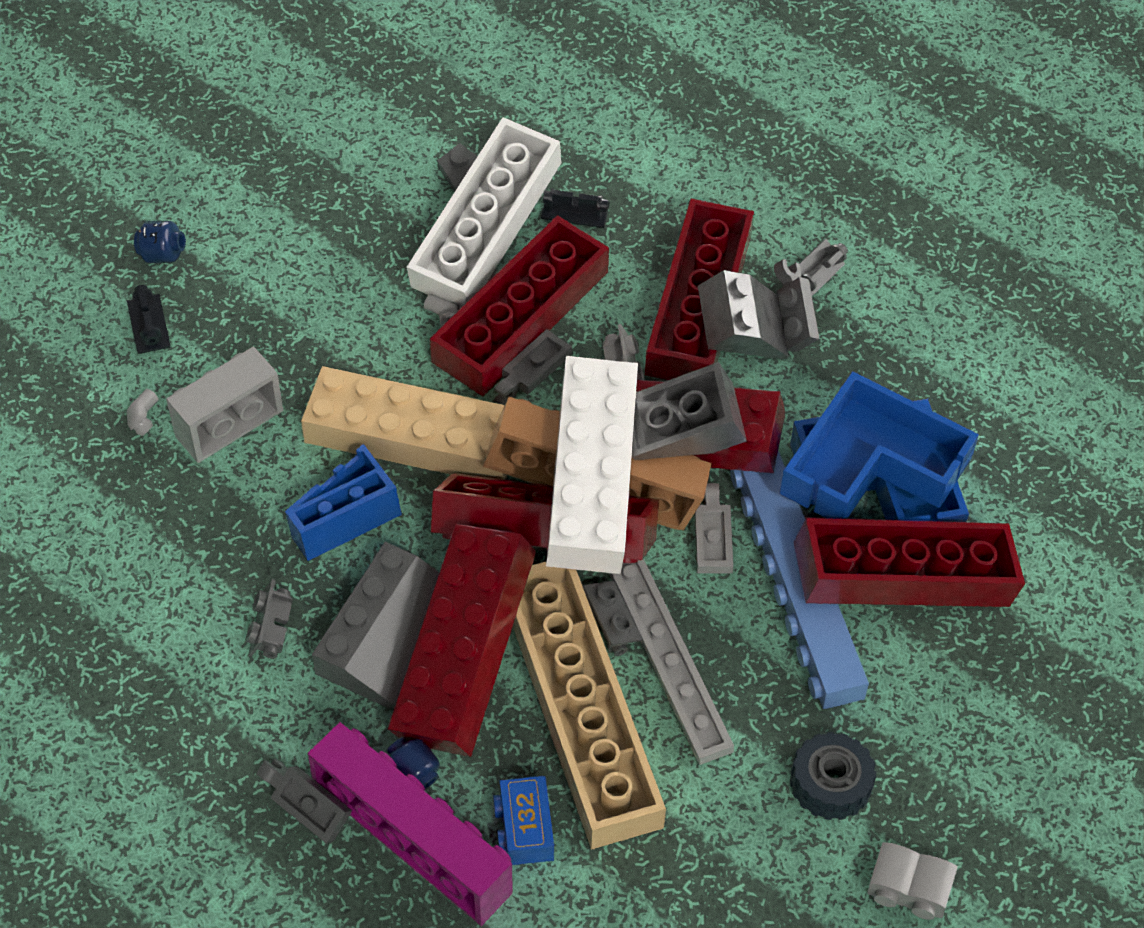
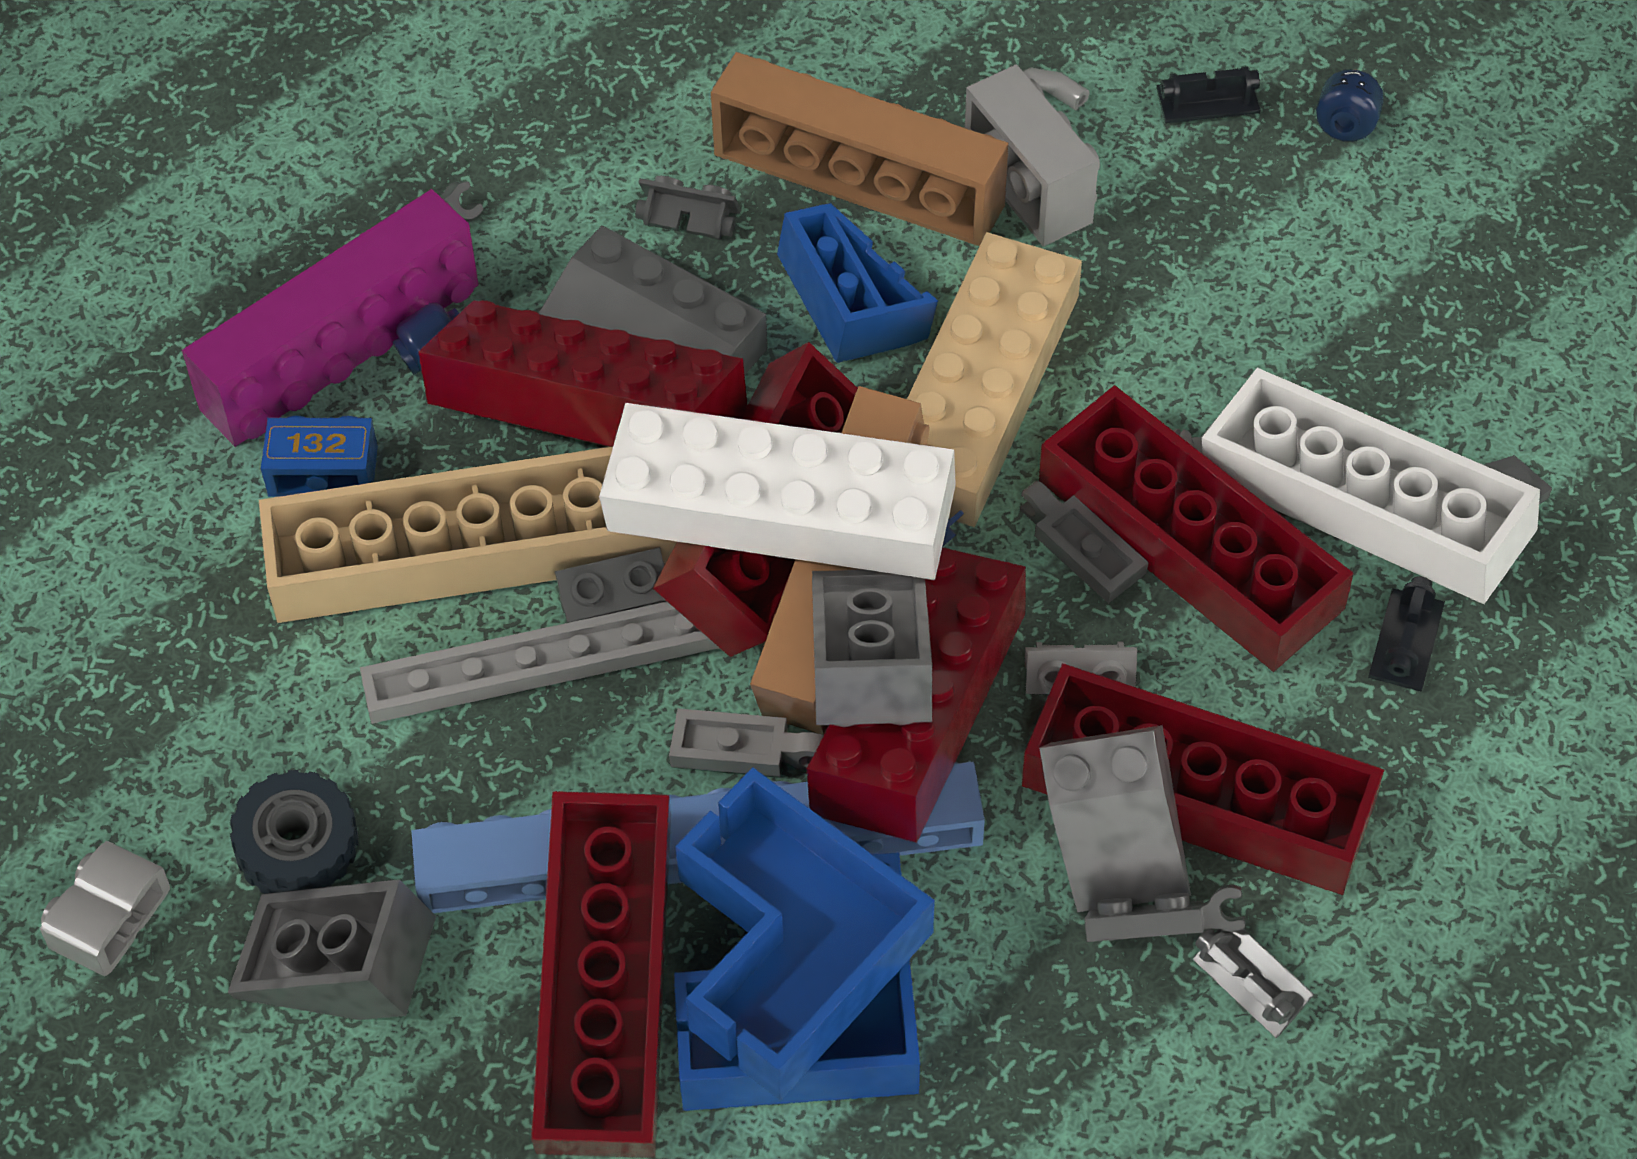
camera: 100 degrees right, 0 degrees up
(222, 507) = (859, 148): none -> medium nougat brick
(911, 738) = (336, 950): none -> flat silver slope

